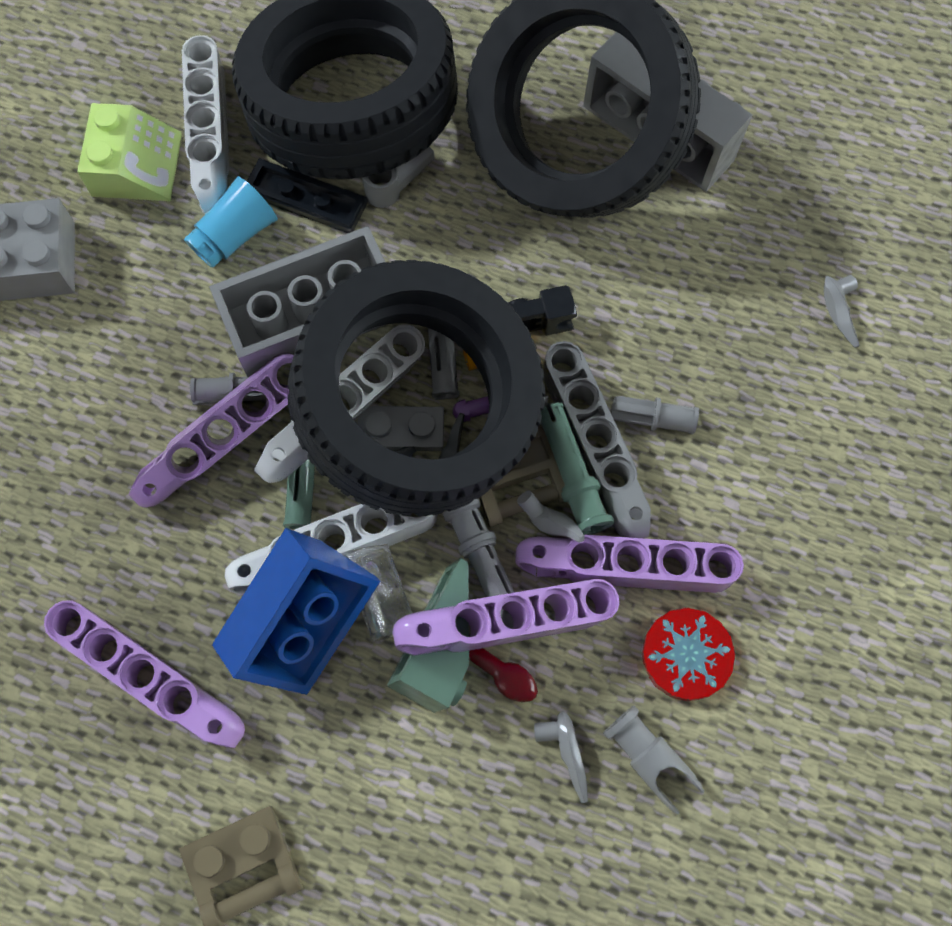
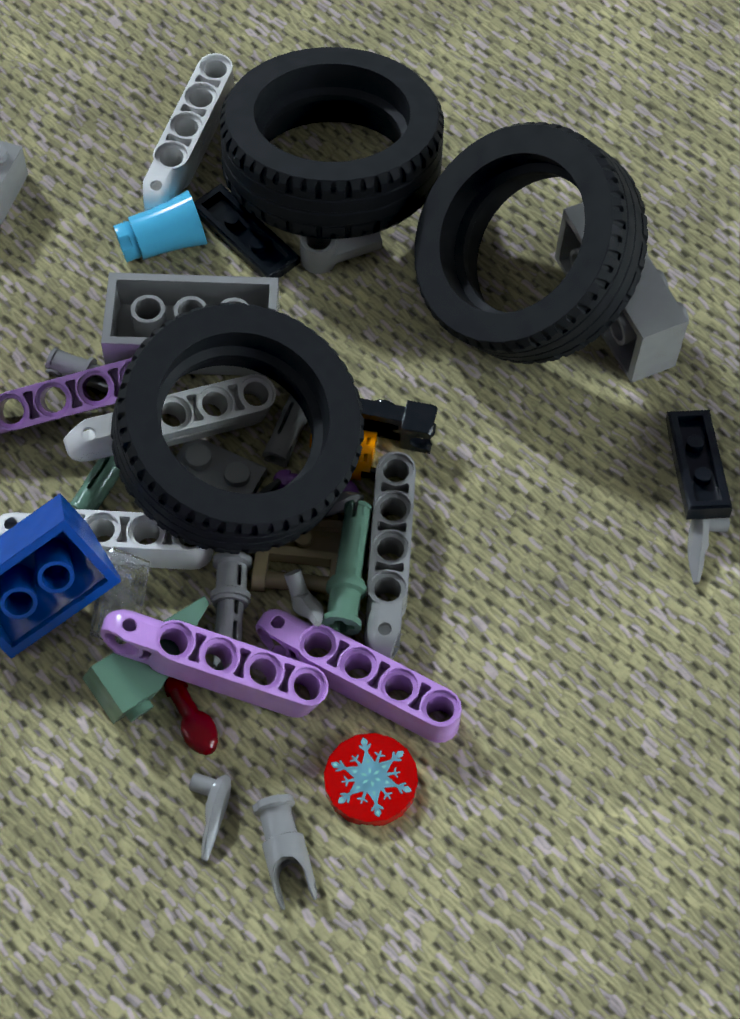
camera: 25 degrees right, 10 degrees down
(128, 154) = (105, 134): yellowish green slope -> none
(655, 414) = (460, 558): light grey axle -> none
(806, 241) = (698, 465): none -> black tile

